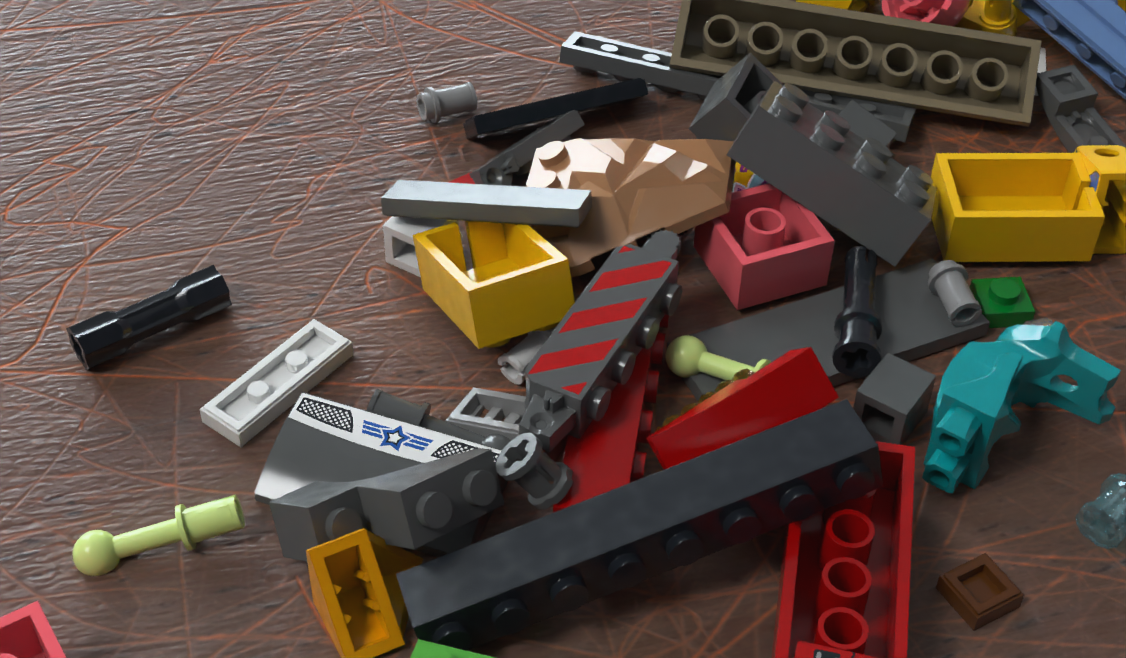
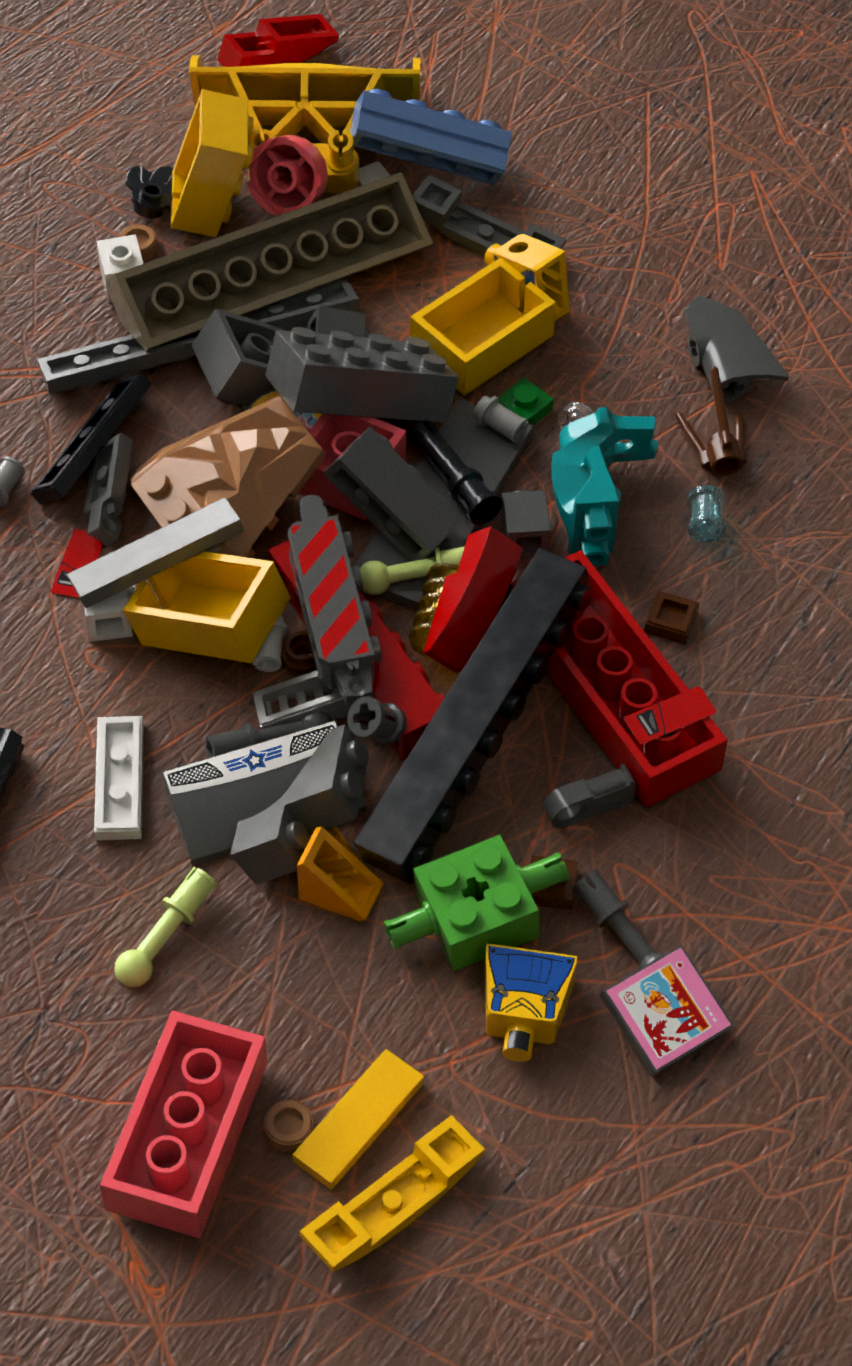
camera: 40 degrees left, 10 degrees up
(760, 279) = (392, 495): none -> dark grey brick

